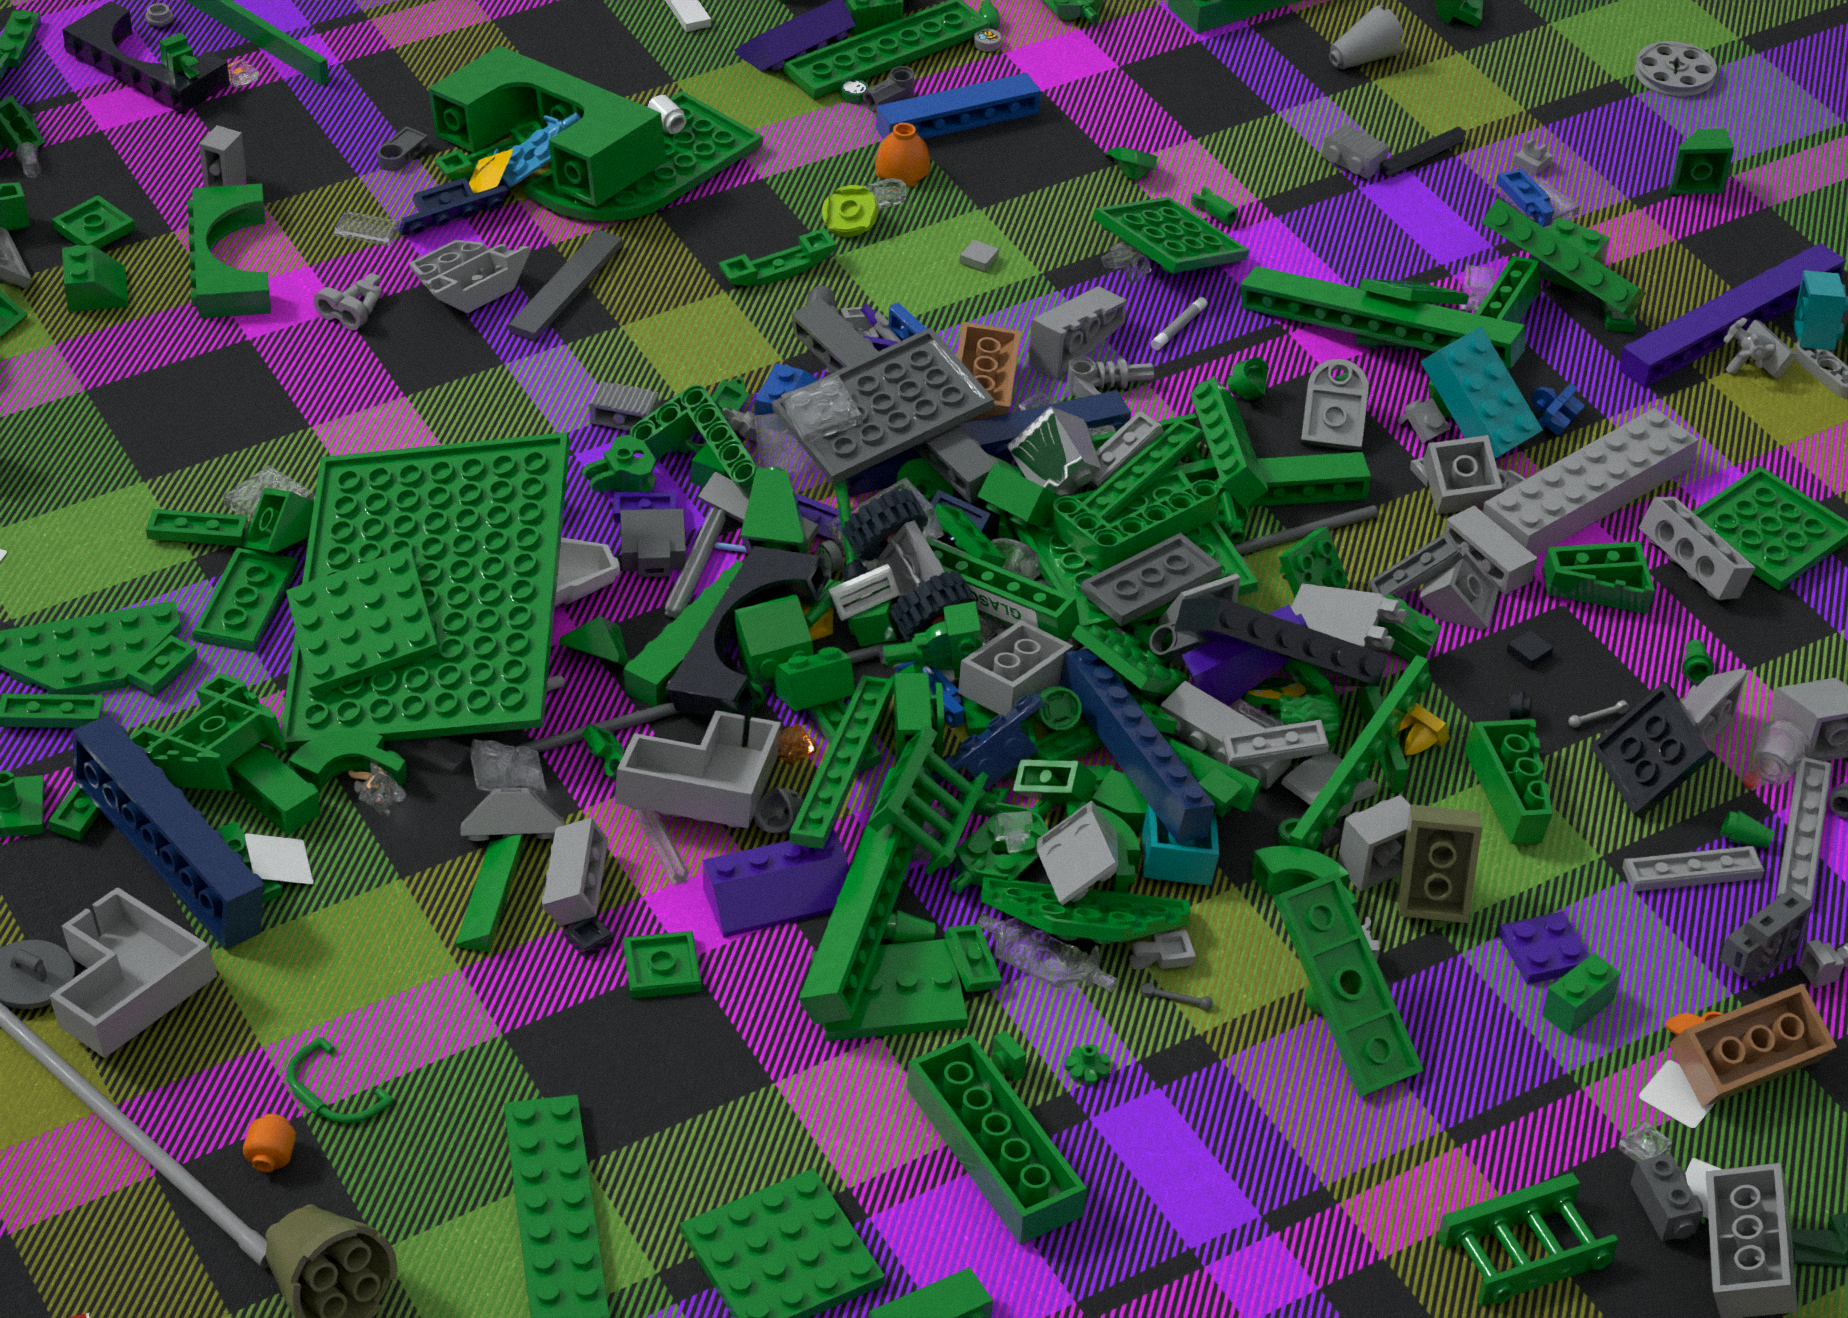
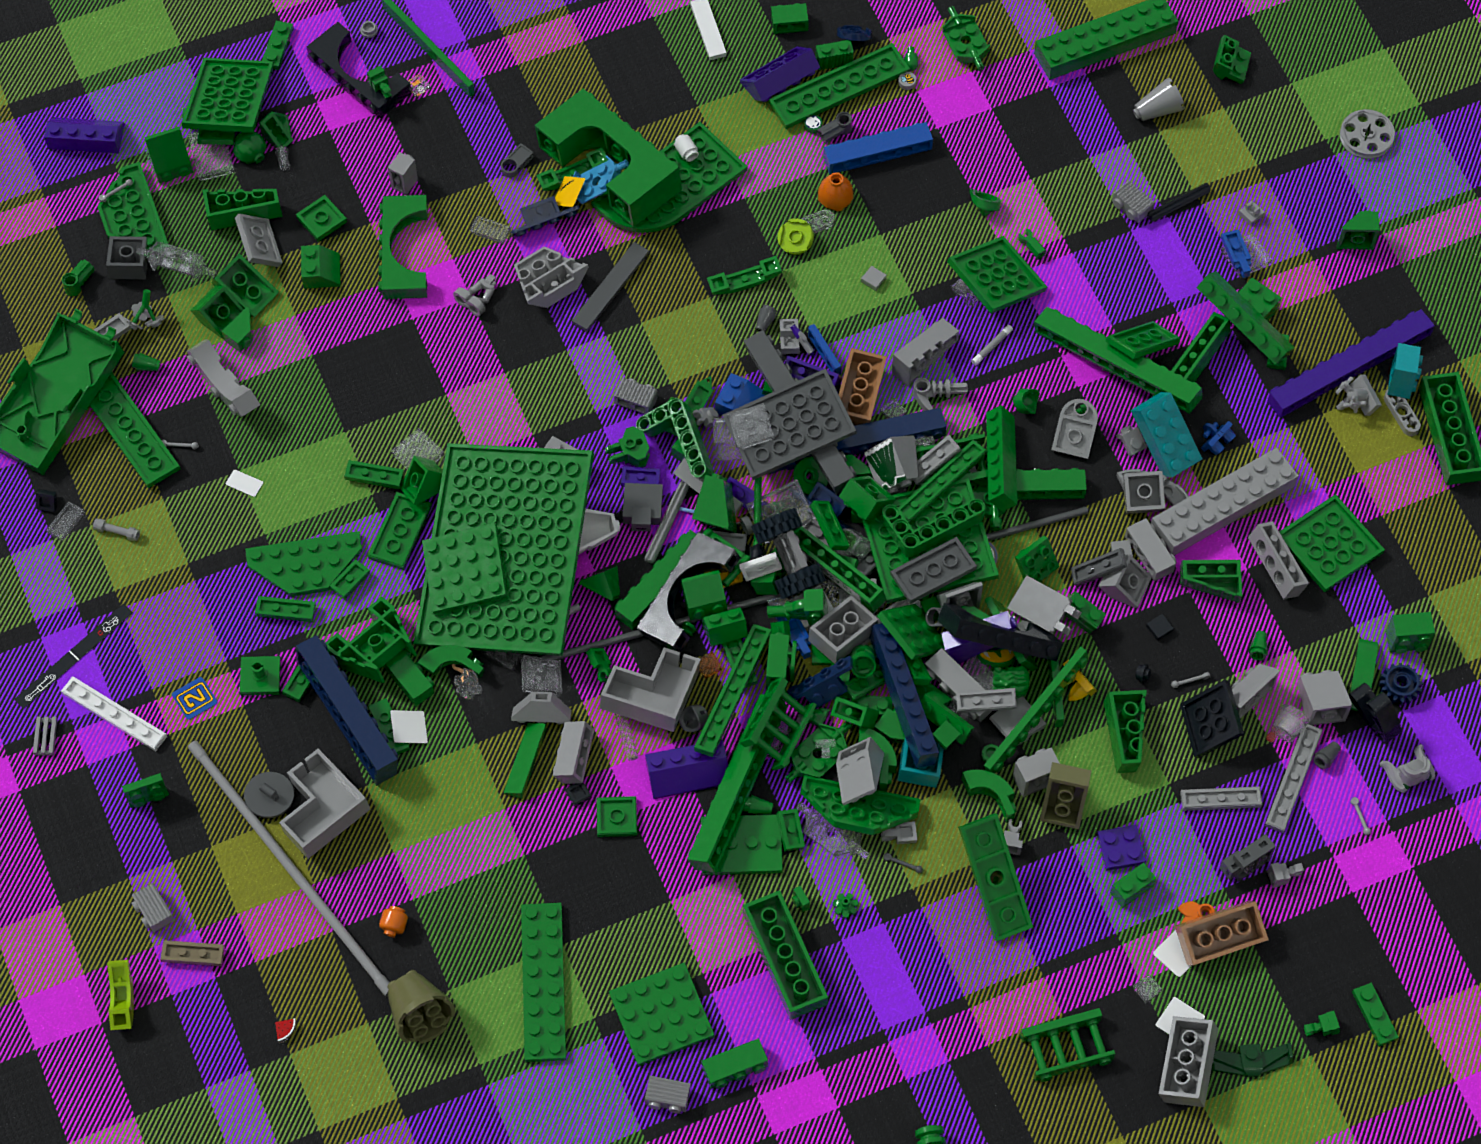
camera: 10 degrees right, 20 degrees up
(315, 1104) = (417, 891): green piece -> none
(1477, 284) = (1188, 329): clear brick -> none
(1666, 1197) = (1149, 1026): dark grey brick -> none
(1745, 830) = (1257, 775): green cone -> none

